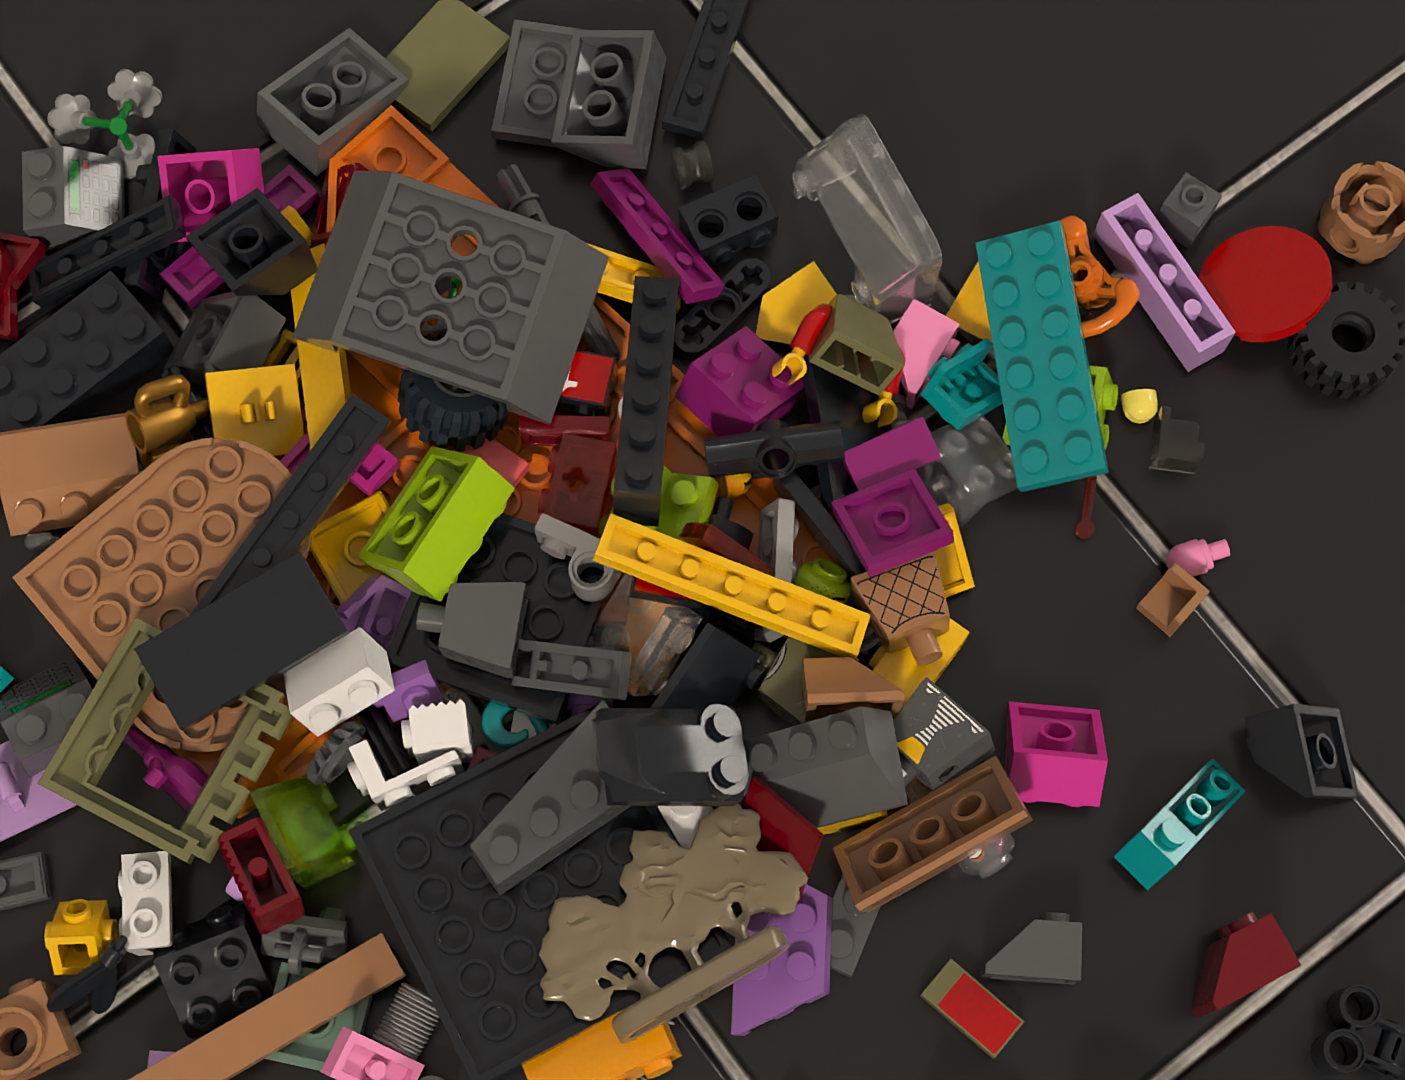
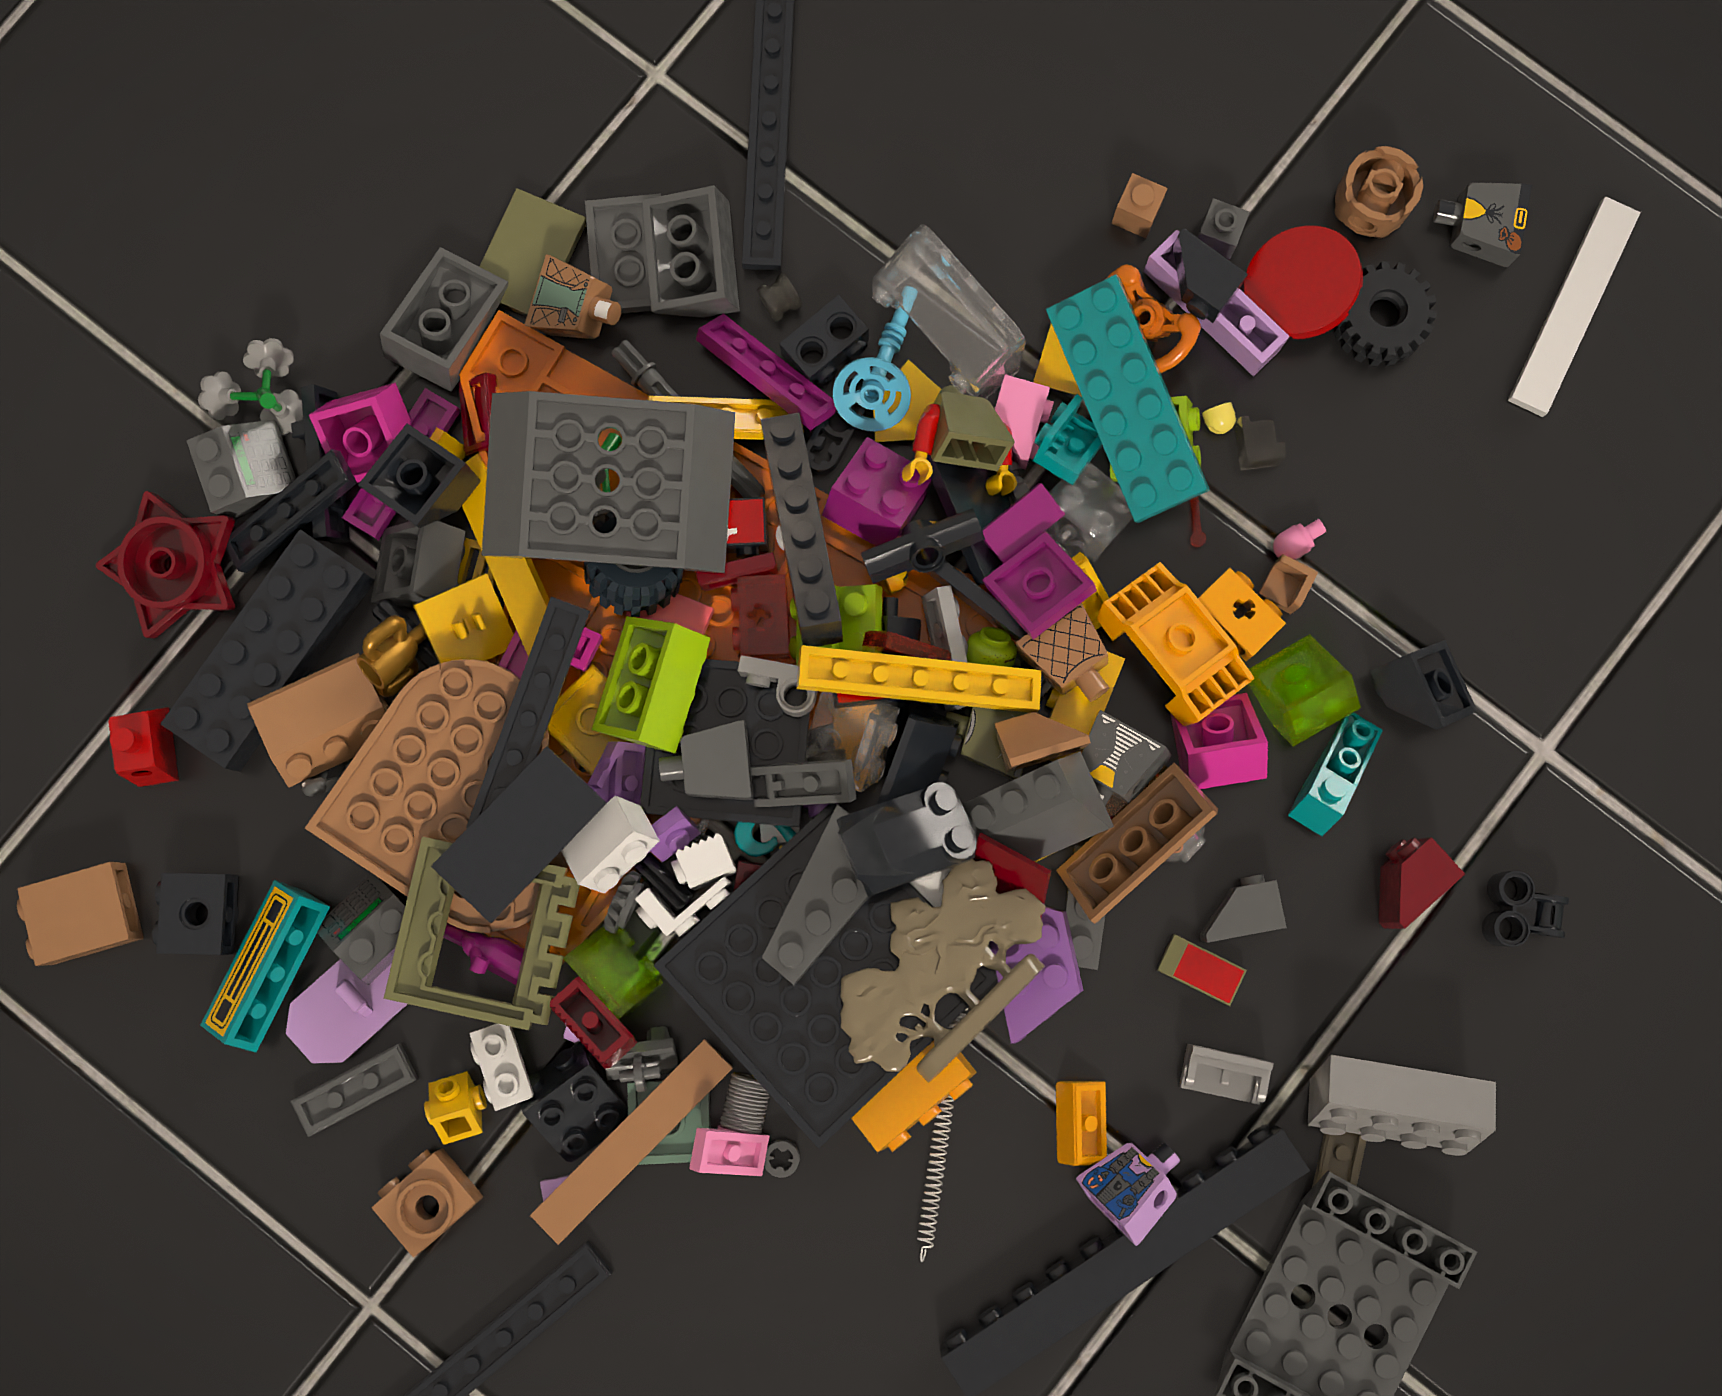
camera: 10 degrees left, 10 degrees up
(97, 980) = (480, 1141): black piece -> none
(468, 114) = (570, 302): none -> medium nougat torso
(771, 272) = (875, 382): none -> medium azure dish
(1034, 629) = (1178, 642): none -> light orange plate
(1104, 164) = (1139, 205): none -> medium nougat brick
(1111, 641) = (1263, 616): none -> light orange brick
(1157, 245) = (1204, 277): none -> black slope
(1164, 721) = (1303, 690): none -> clear neon green slope

